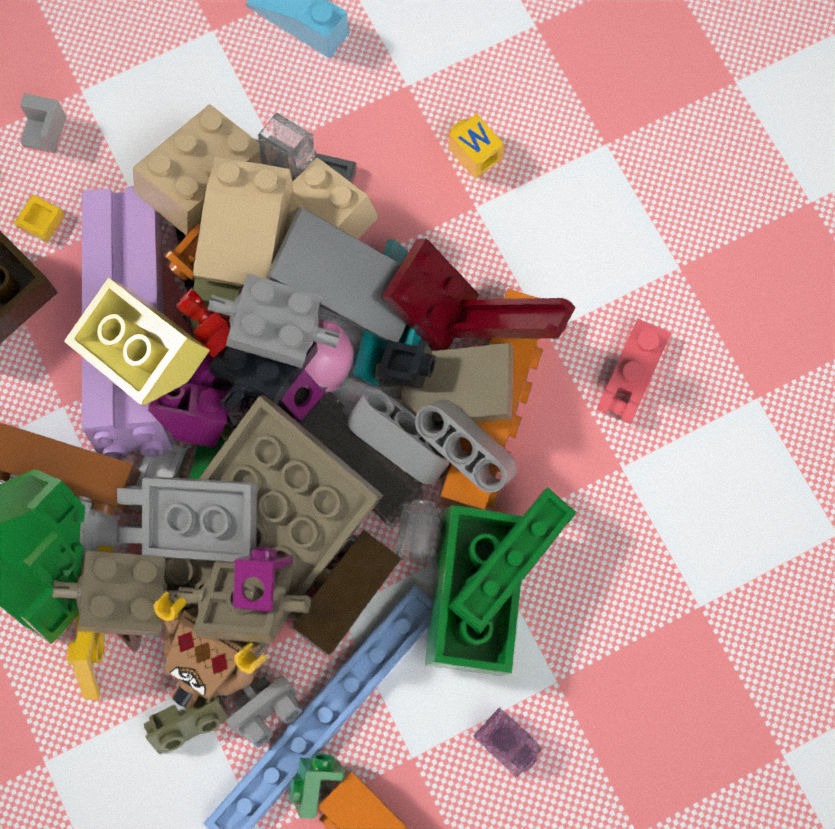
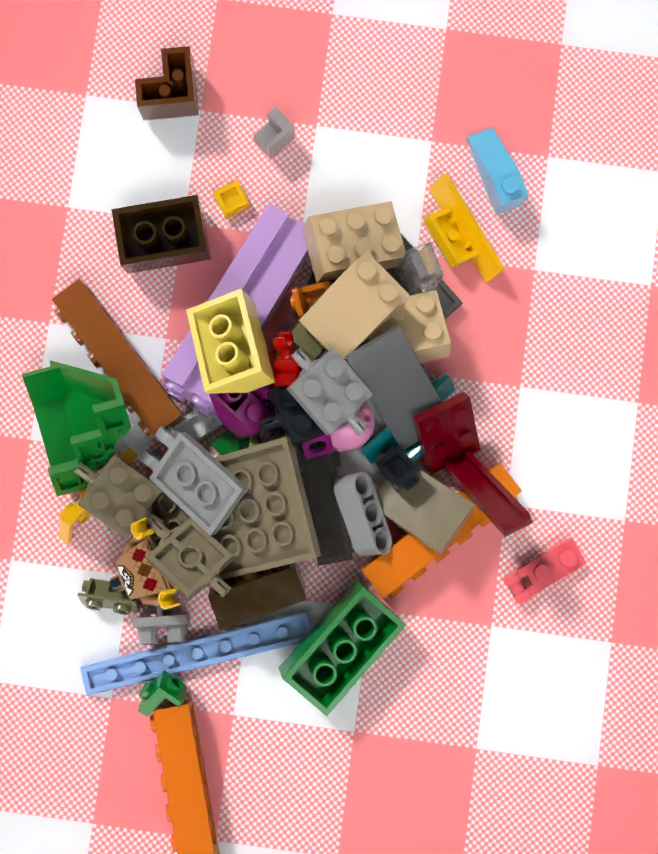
camera: 30 degrees right, 10 degrees up
(262, 566) = (214, 546): magenta bracket -> none
(304, 95) = (459, 232): none -> yellow bracket
(419, 533) = (331, 585): clear brick -> none
(447, 442) = (394, 567): light grey beam -> none
(475, 145) = (549, 345): yellow brick -> none
(508, 743) = (296, 750): clear purple bracket -> none
(512, 560) = (377, 647): green tile -> none

